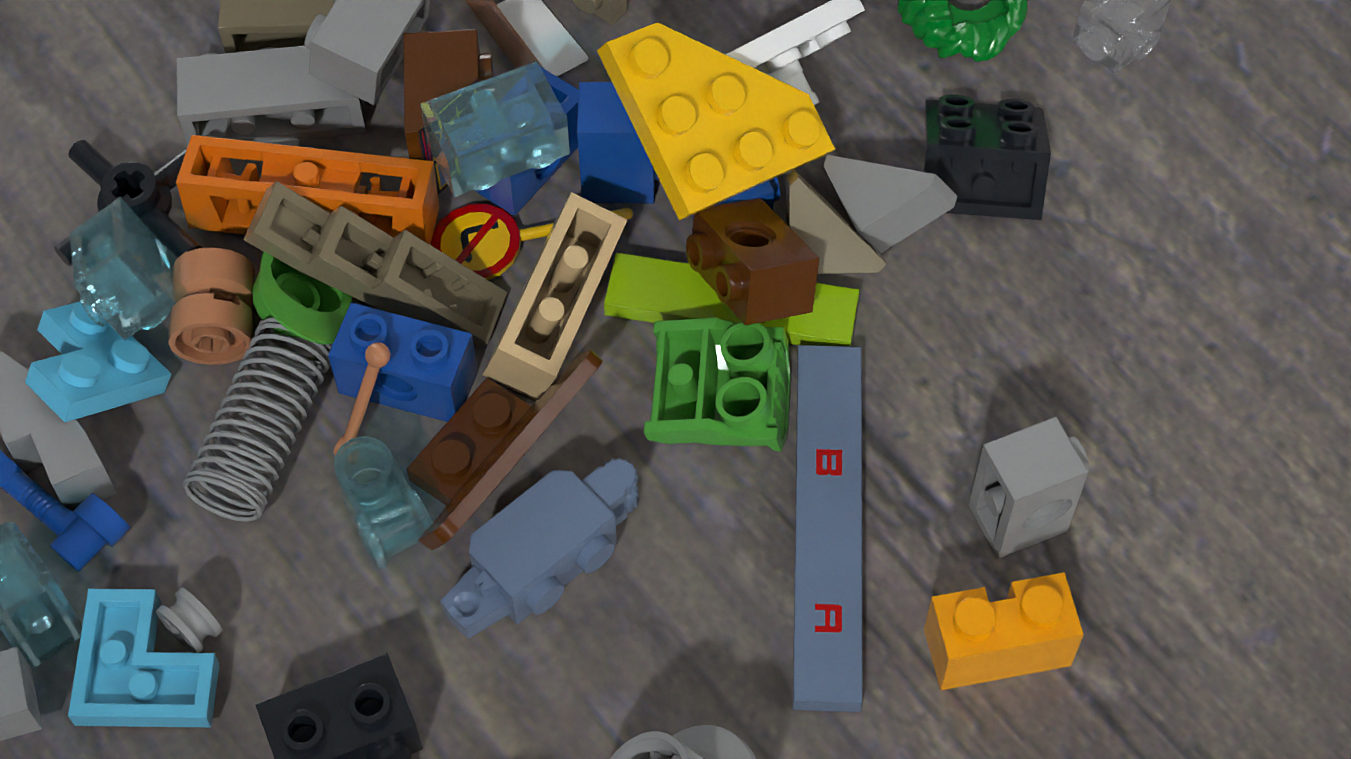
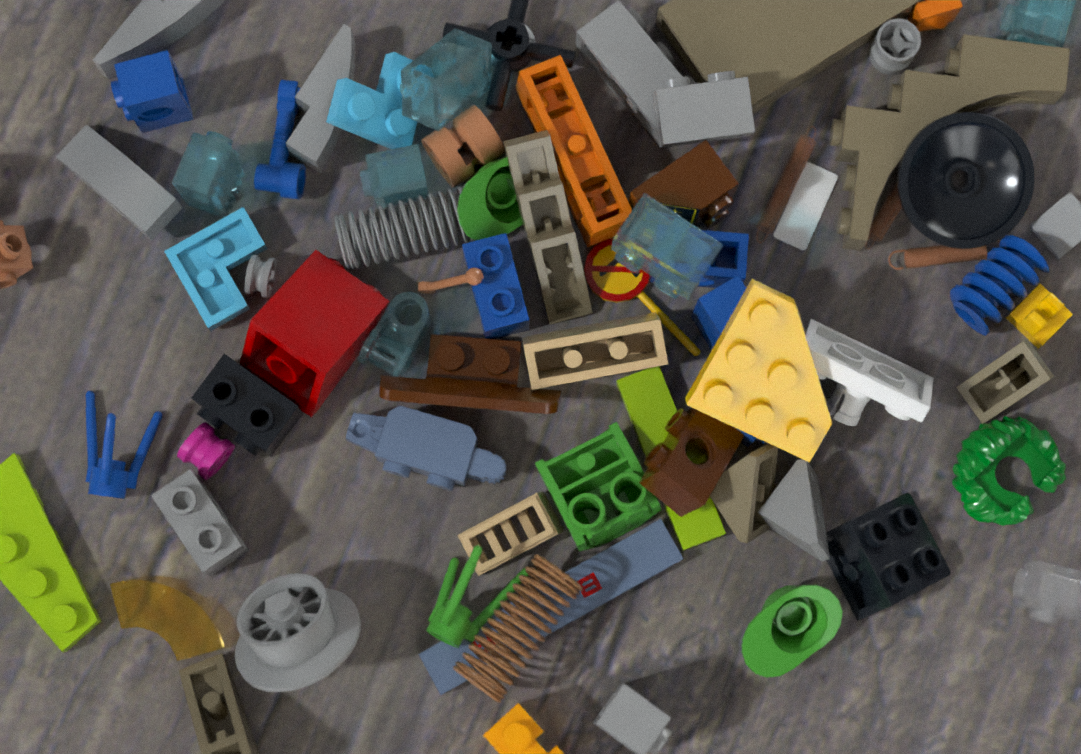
camera: 55 degrees right, 20 degrees up
(186, 397) = (394, 176): none -> clear light blue brick
(305, 589) = (312, 331): none -> red slope
(717, 466) = (545, 513): none -> tan slope
(779, 629) = (450, 619): none -> bright green plant
(806, 490) = (488, 683): none -> medium nougat piece
(1012, 270) = (790, 628): none -> bright green piece

